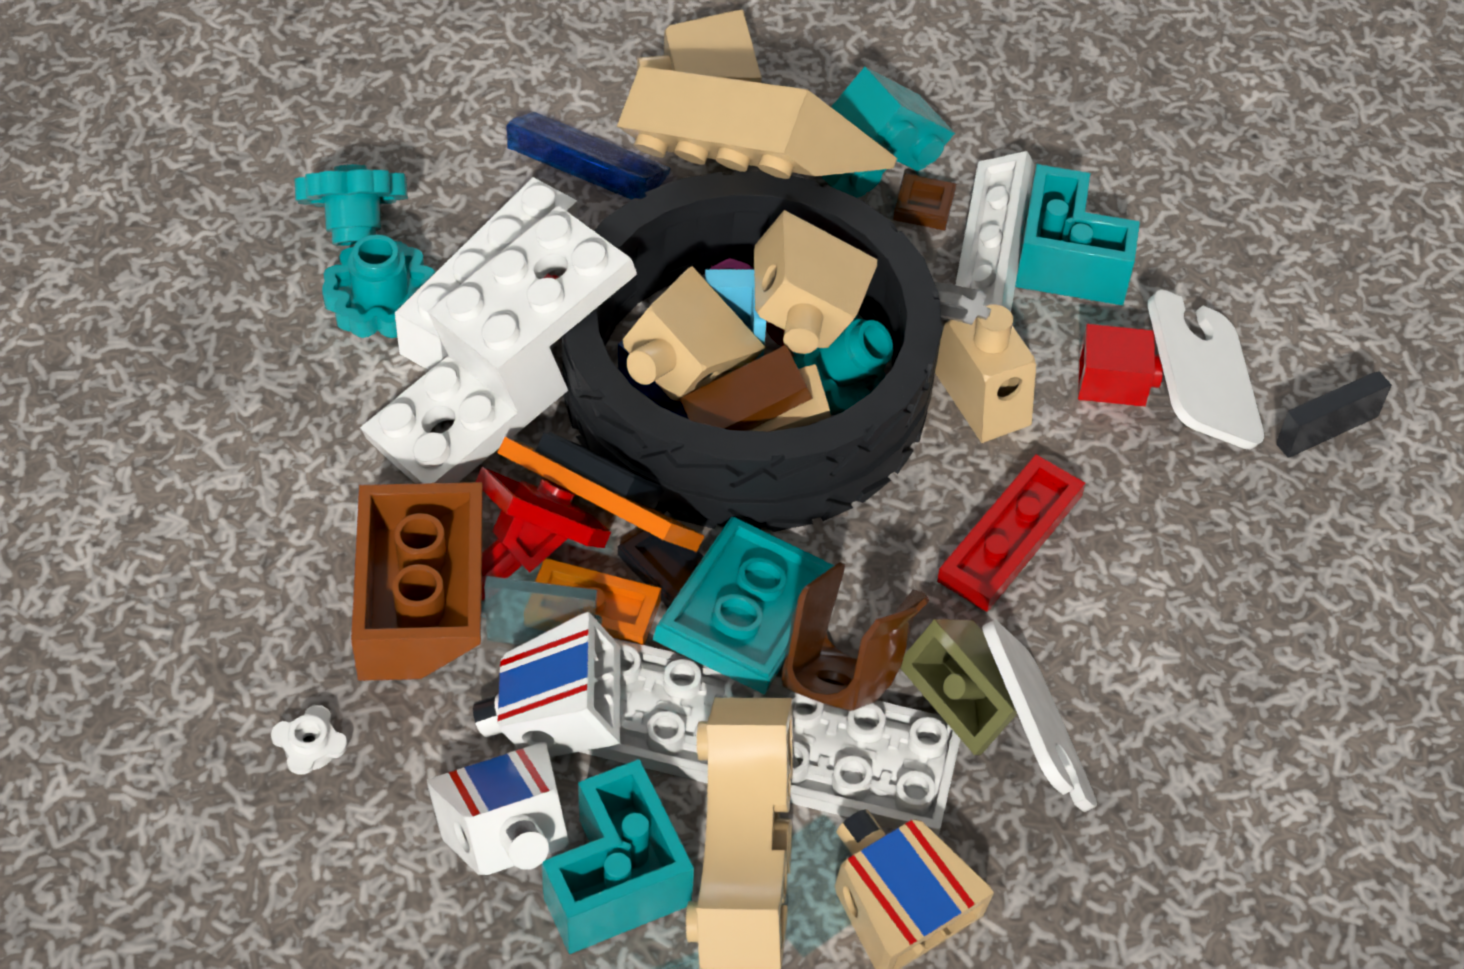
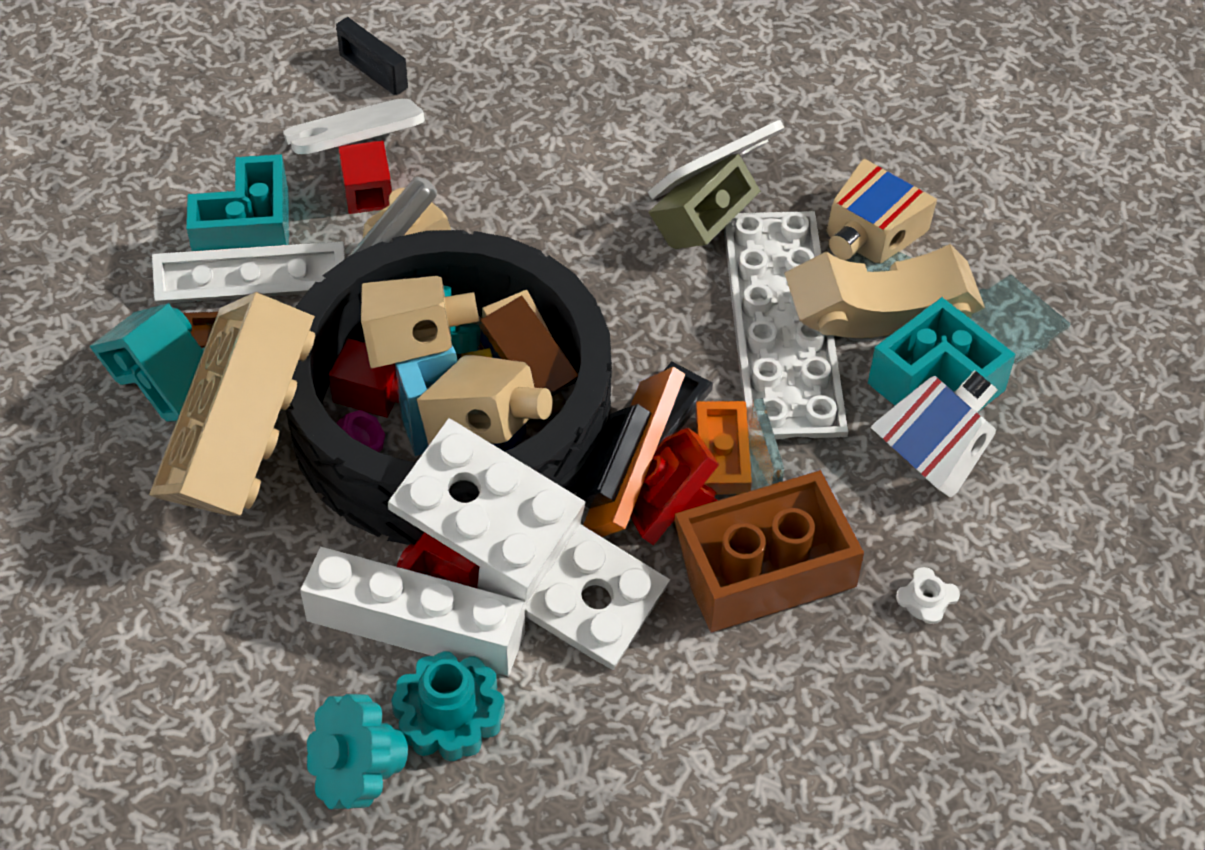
camera: 105 degrees left, 0 degrees up
(558, 691) = (830, 428): white torso -> none
(584, 156) = (216, 596): clear blue slope -> none
(709, 47) = (76, 519): tan torso -> none
(740, 605) = (702, 341): teal tile -> none
(815, 657) = (722, 259): reddish brown piece -> none
(1010, 533) = (548, 215): red plate -> none

